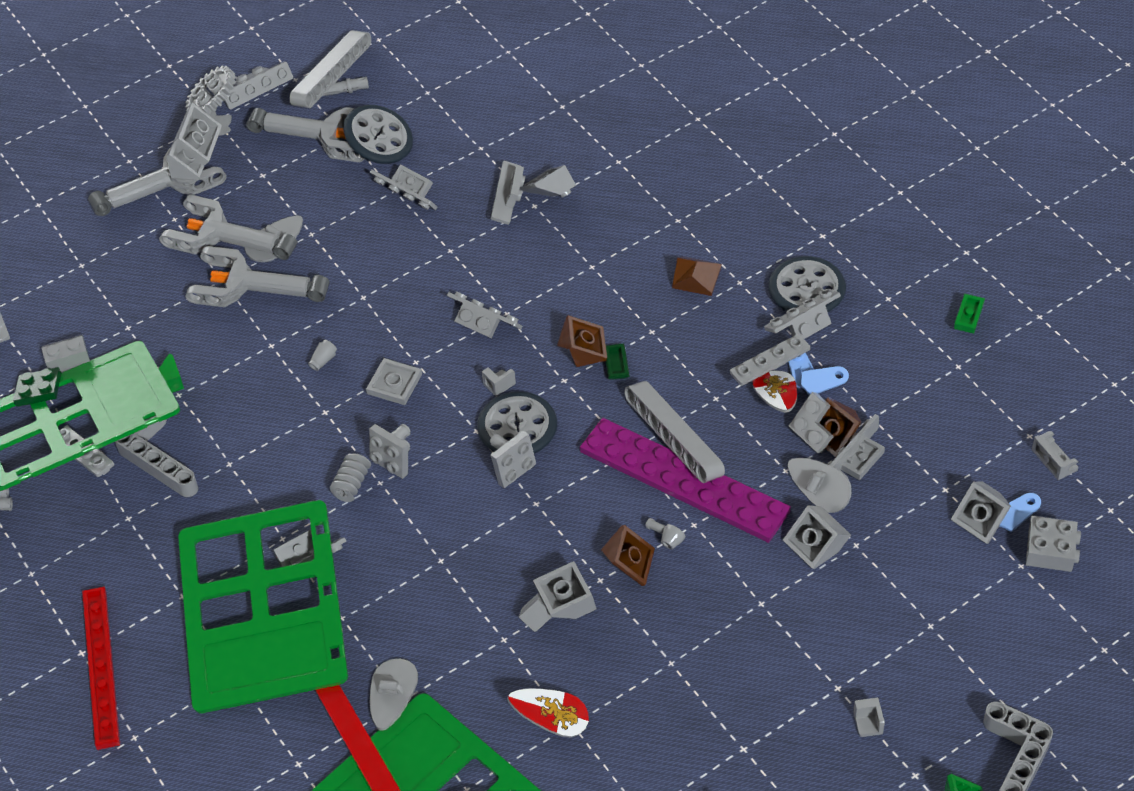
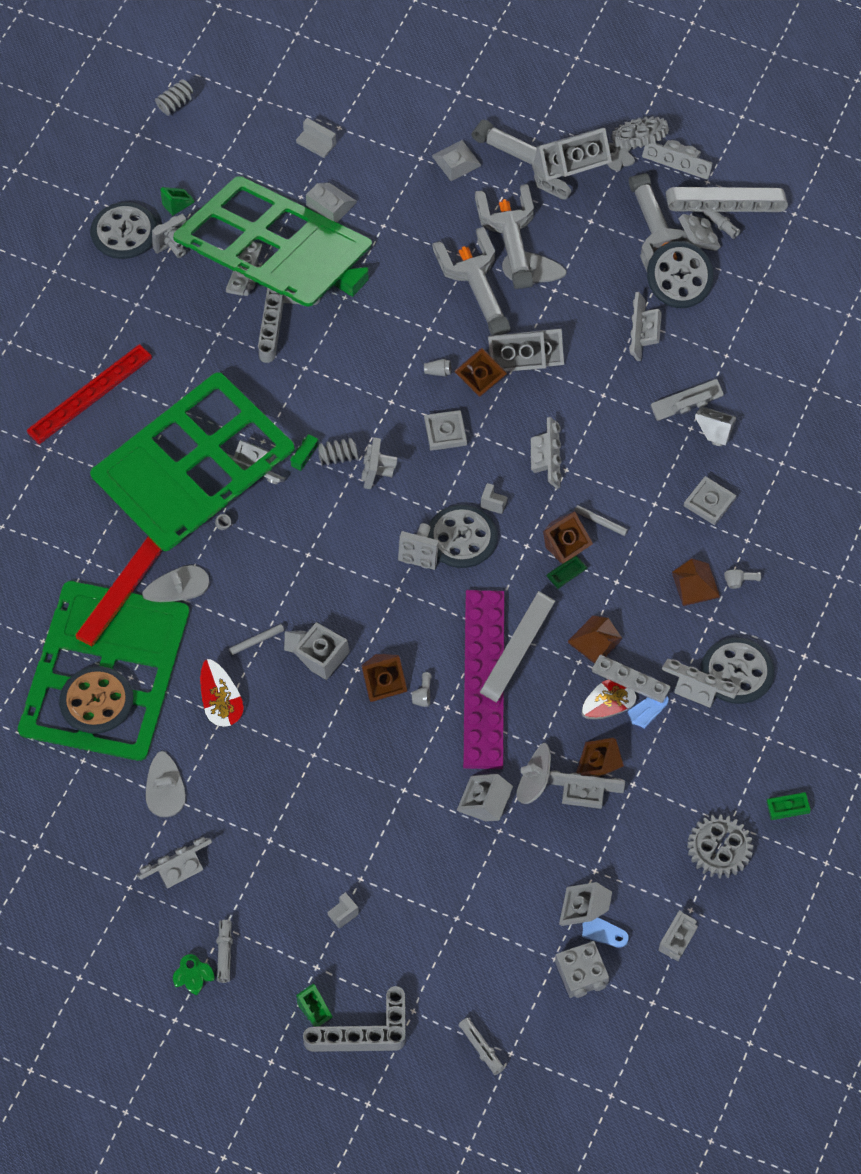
camera: 55 degrees right, 10 degrees up
(37, 386) = (286, 203): dark green plate -> none
(109, 239) = (456, 160): none -> light grey slope
(333, 513) = (304, 452): none -> green piece
(340, 100) = (699, 232): none -> light grey plate
(349, 612) = (223, 519): none -> light grey hinge
(360, 319) = (480, 372): none -> reddish brown slope
(361, 280) = (527, 349): none -> light grey slope
(506, 650) = (256, 639): none -> light grey bar
(582, 311) = (600, 520): none -> light grey bar
(621, 224) = (710, 500): none -> light grey plate
(702, 372) = (596, 638): none -> reddish brown slope
(713, 242) = (735, 577): none -> light grey bar
(807, 423) = (588, 738): light grey plate -> none
(823, 379) = (644, 728): light blue piece -> none
(981, 380) = (703, 837): none -> light grey gear
(1086, 668) = (481, 1045): none -> light grey pin

